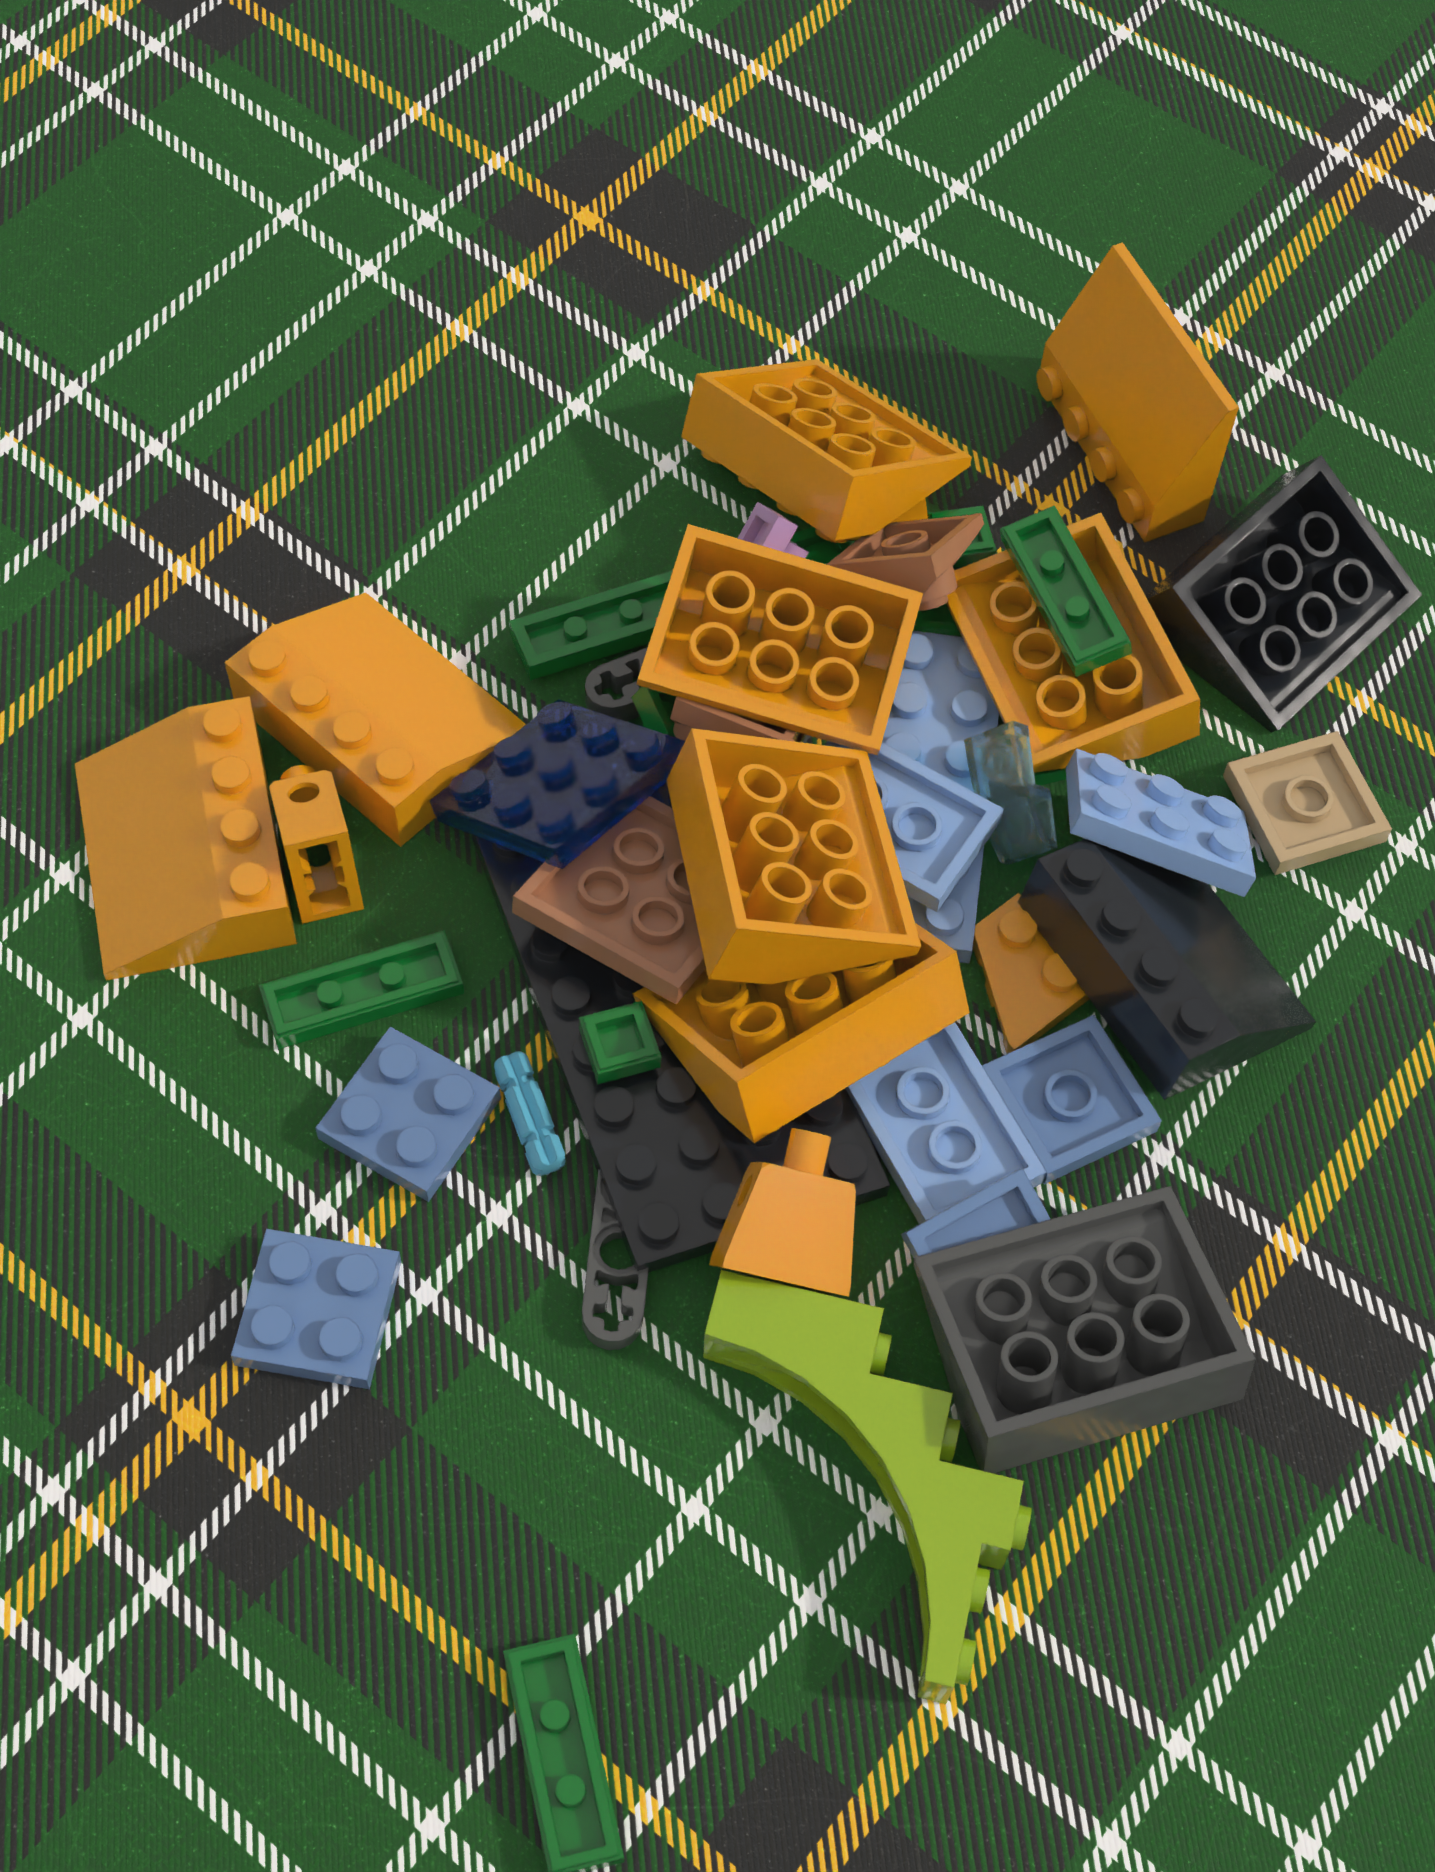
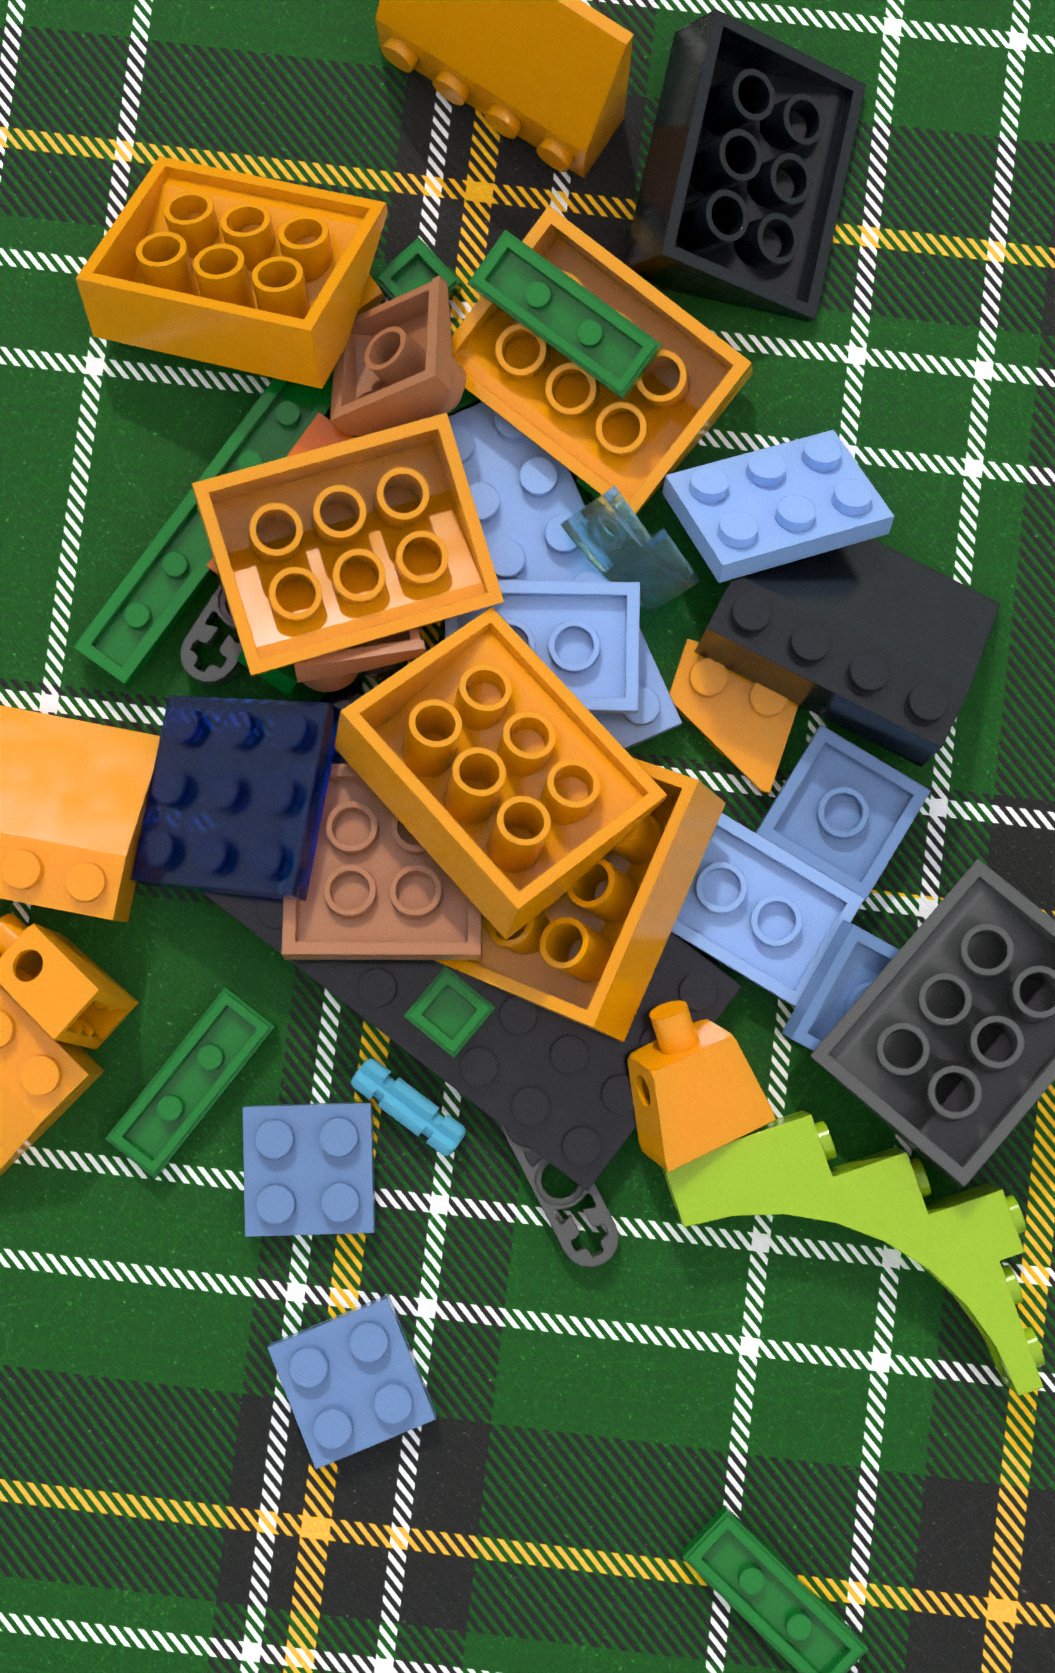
camera: 30 degrees left, 25 degrees up
(771, 530) = (260, 427): lavender tile -> none
(1306, 802) = (882, 387): tan plate -> none

